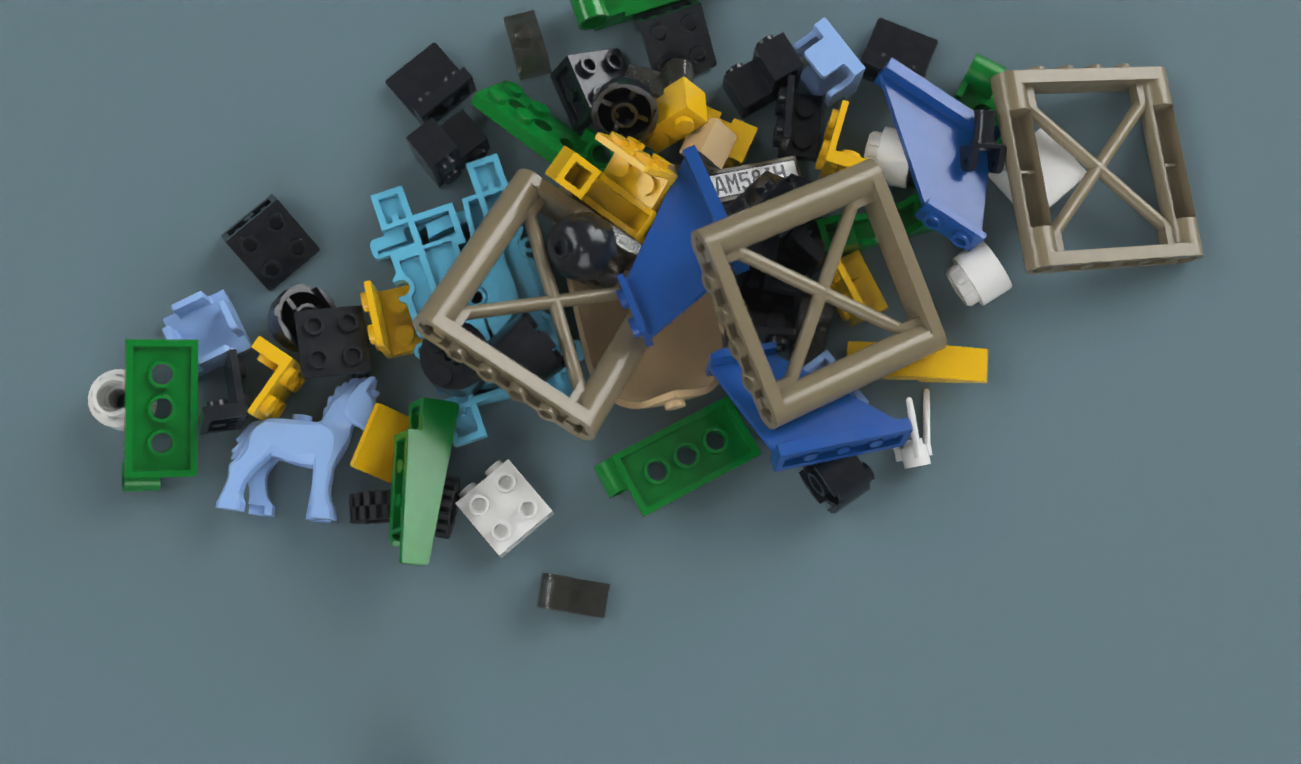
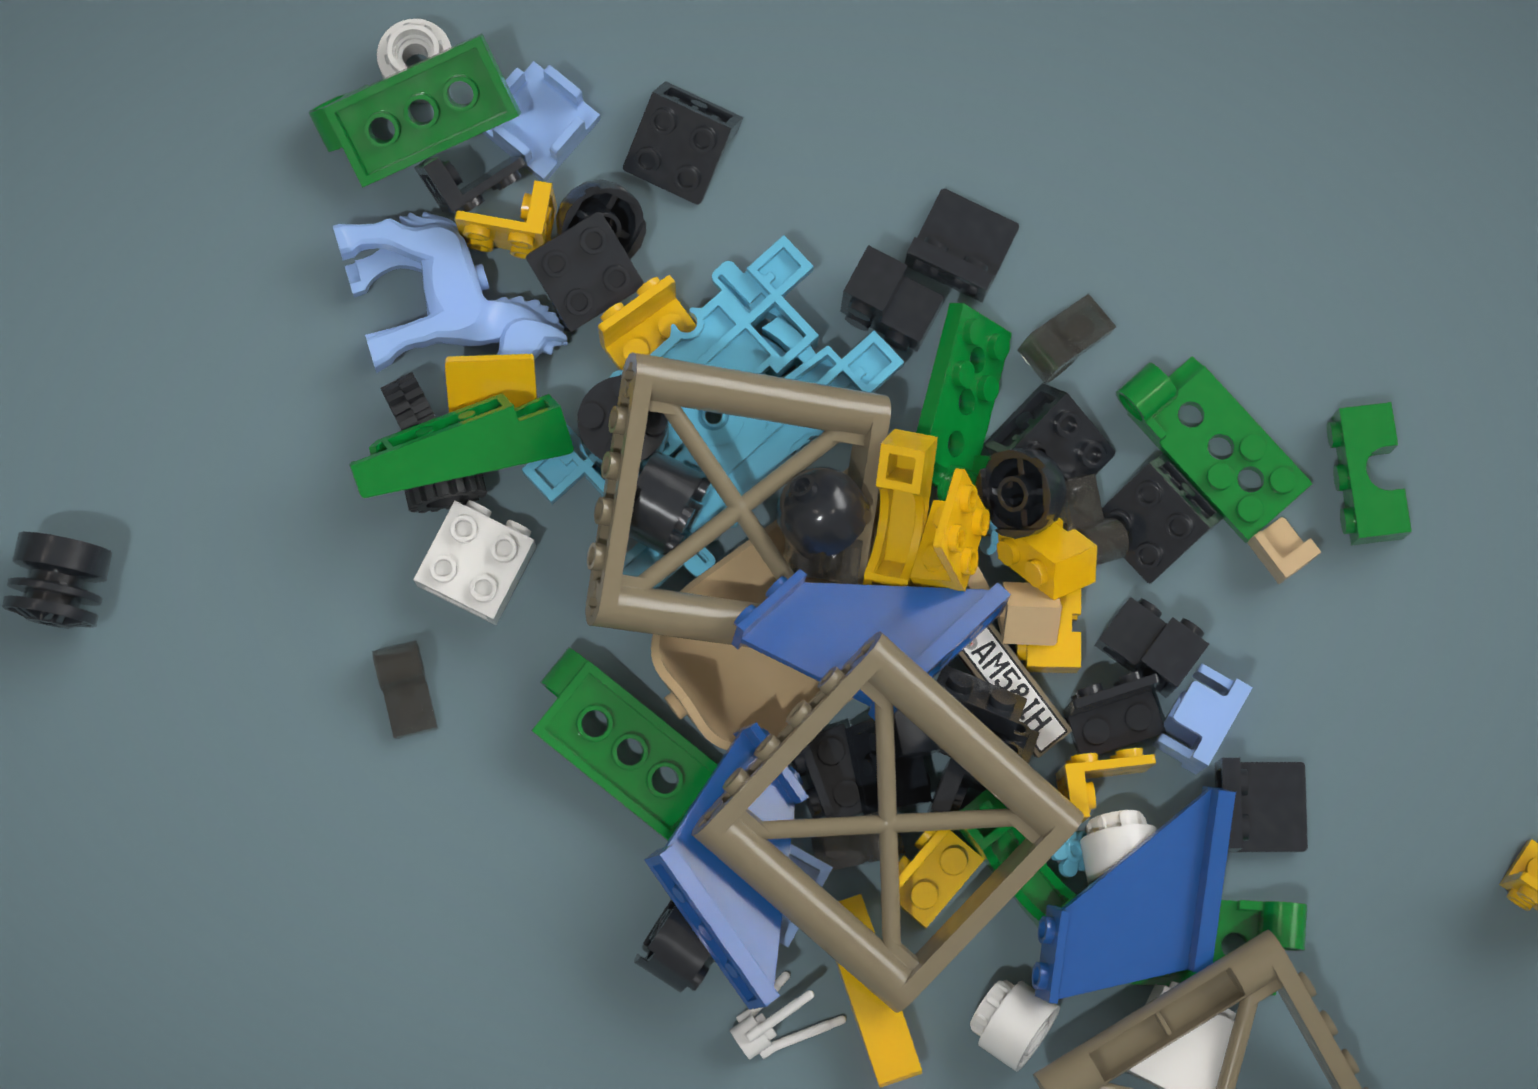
camera: 65 degrees right, 0 degrees up
(983, 141) = (1180, 953): black piece -> none

